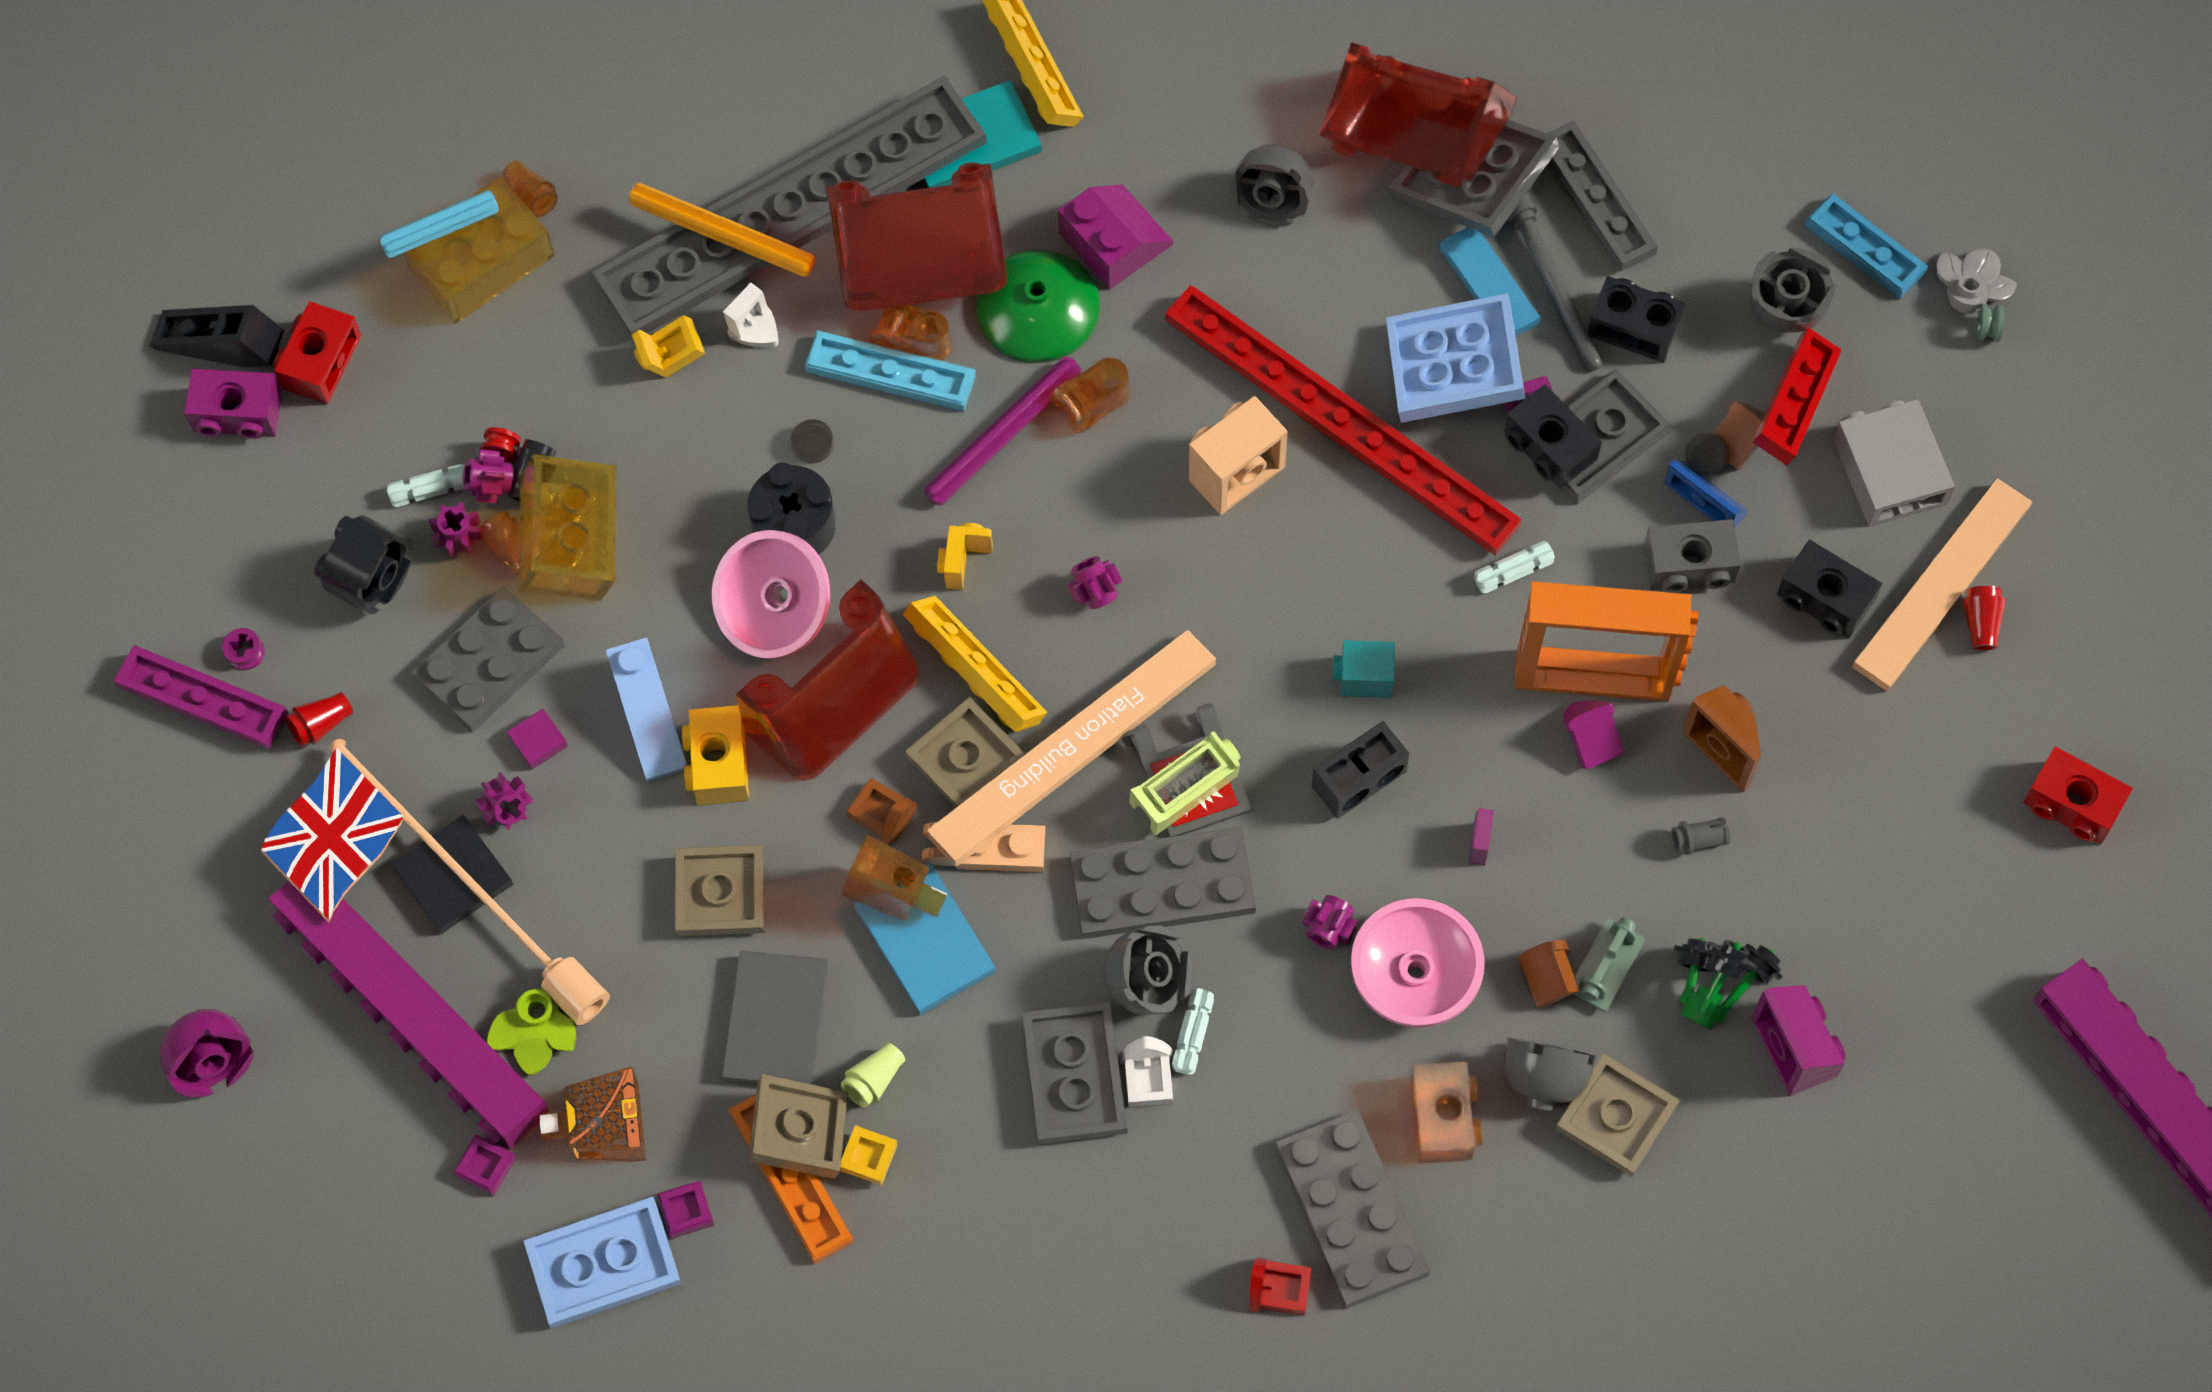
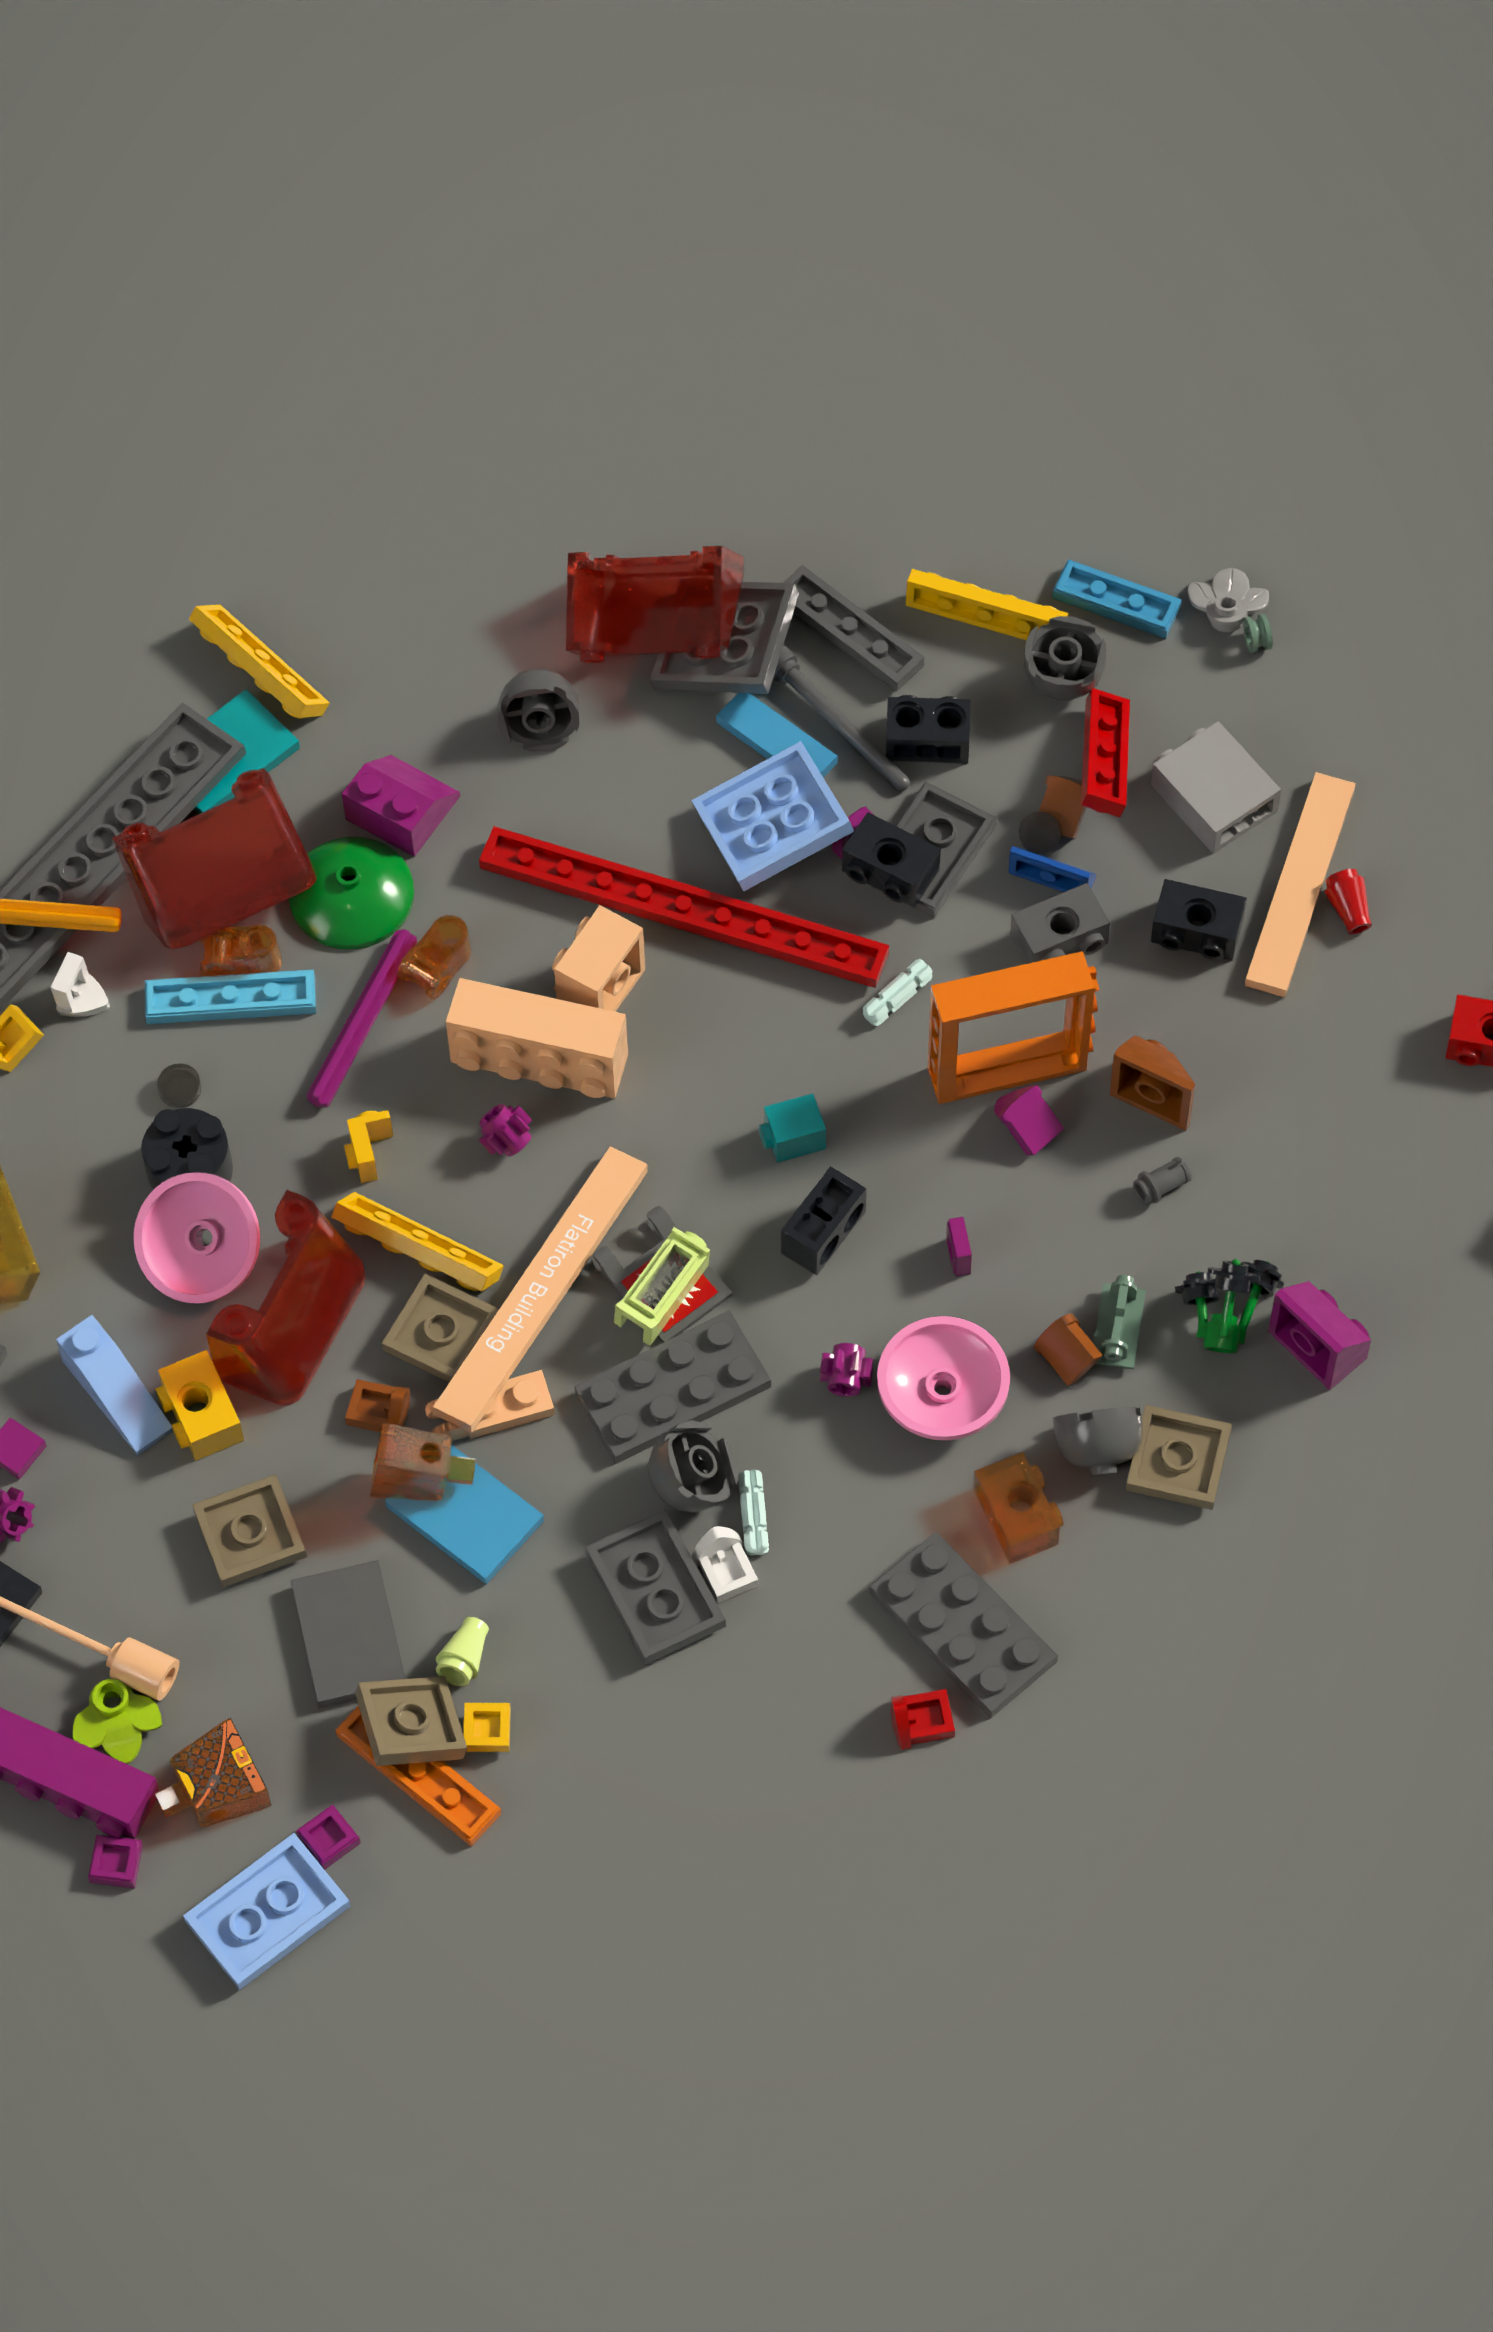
camera: 20 degrees left, 5 degrees down
(1154, 505) = (537, 1038): none -> light nougat brick
(1726, 211) = (976, 605): none -> yellow plate

